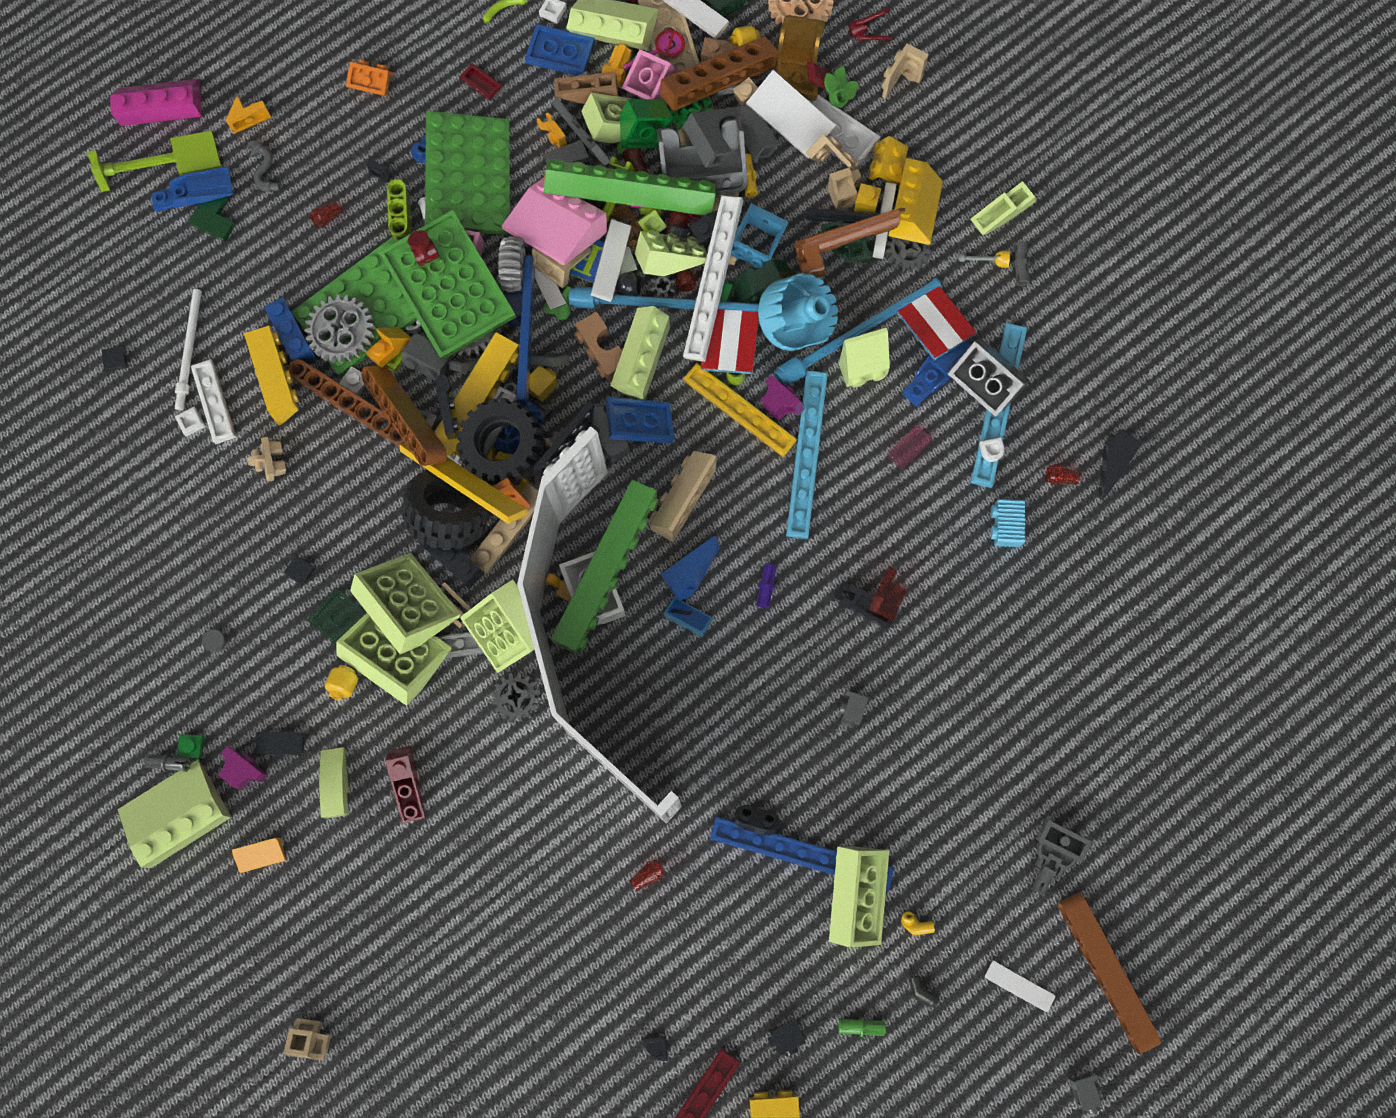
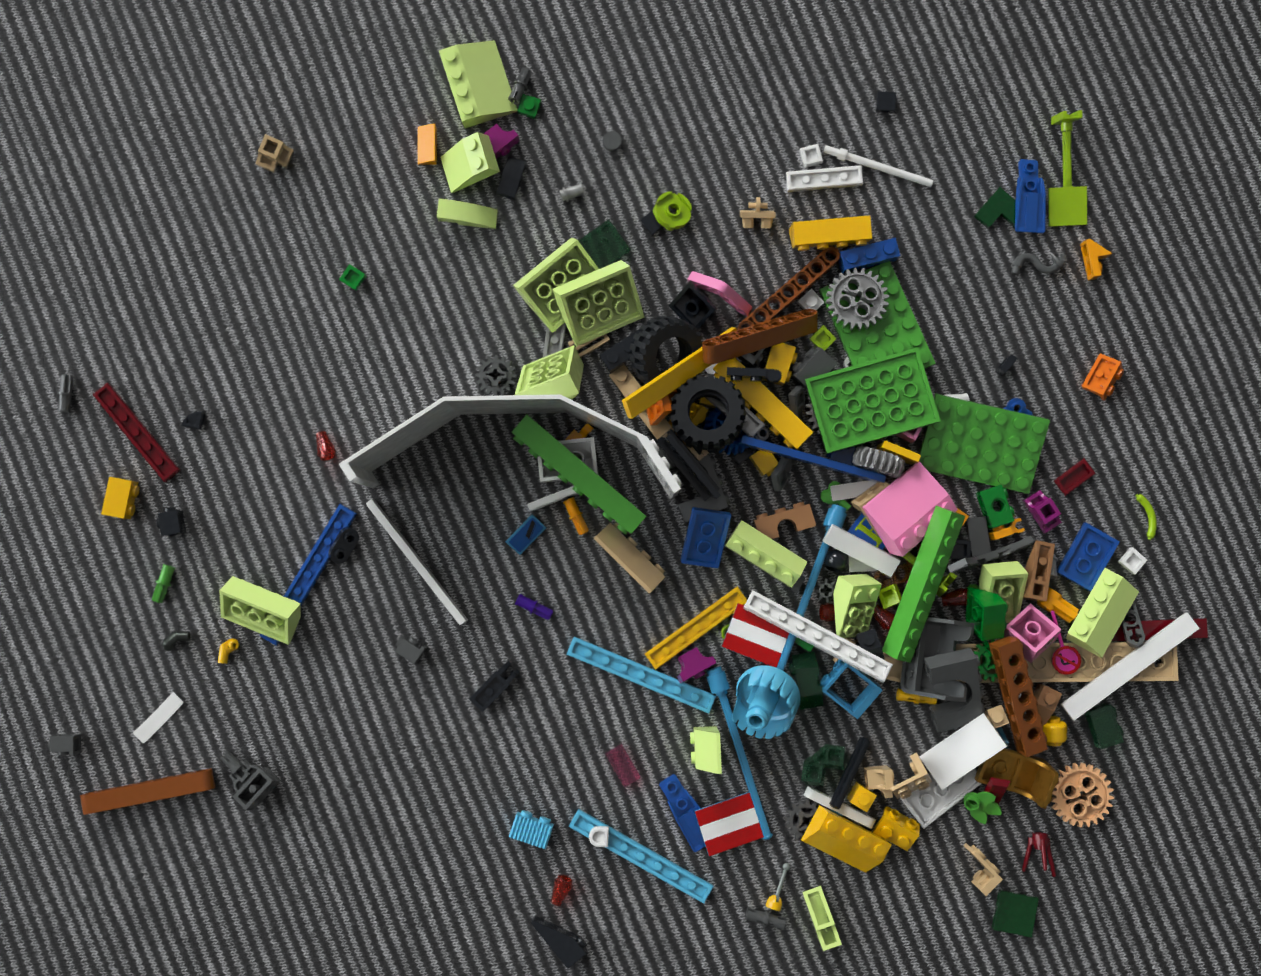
camera: 105 degrees right, 10 degrees up
(156, 102) = (1128, 181): dark pink slope -> none
(271, 795) = (469, 161): none -> yellowish green slope
(283, 669) = (571, 192): none -> light grey pin
(289, 558) = (665, 217): none -> lime plate
(324, 214) = (976, 308): clear red cone -> none
(341, 682) = (547, 237): yellow head -> none
(359, 467) = (722, 289): none -> bright pink beam
(384, 500) = (693, 306): none -> black slope
(391, 343) = (834, 341): light orange slope -> none
(396, 203) = (969, 371): lime beam -> none
(405, 783) = (452, 271): dark red slope -> none
(422, 247) = (906, 386): dark red piece -> none
(424, 394) = (780, 358): none -> yellow brick
(438, 899) = (352, 277): none -> green plate
(497, 235) = (908, 456): none -> yellow tile
(522, 100) = (1043, 511): none -> magenta brick
(528, 156) = (987, 498): none -> green brick
(639, 596) = (551, 499): none -> white tile
(652, 567) = (576, 516): none -> light orange axle
(679, 230) = (875, 619): black tile -> none
(688, 573) = (561, 545): blue slope -> none
(752, 729) = (416, 562): none -> white tile
(810, 248) = (821, 731): dark orange panel -> none
(888, 596) = (495, 706): clear red panel -> none
(937, 34) = (1015, 913): none -> dark green tile
(988, 377) = (663, 853): dark grey slope -> none

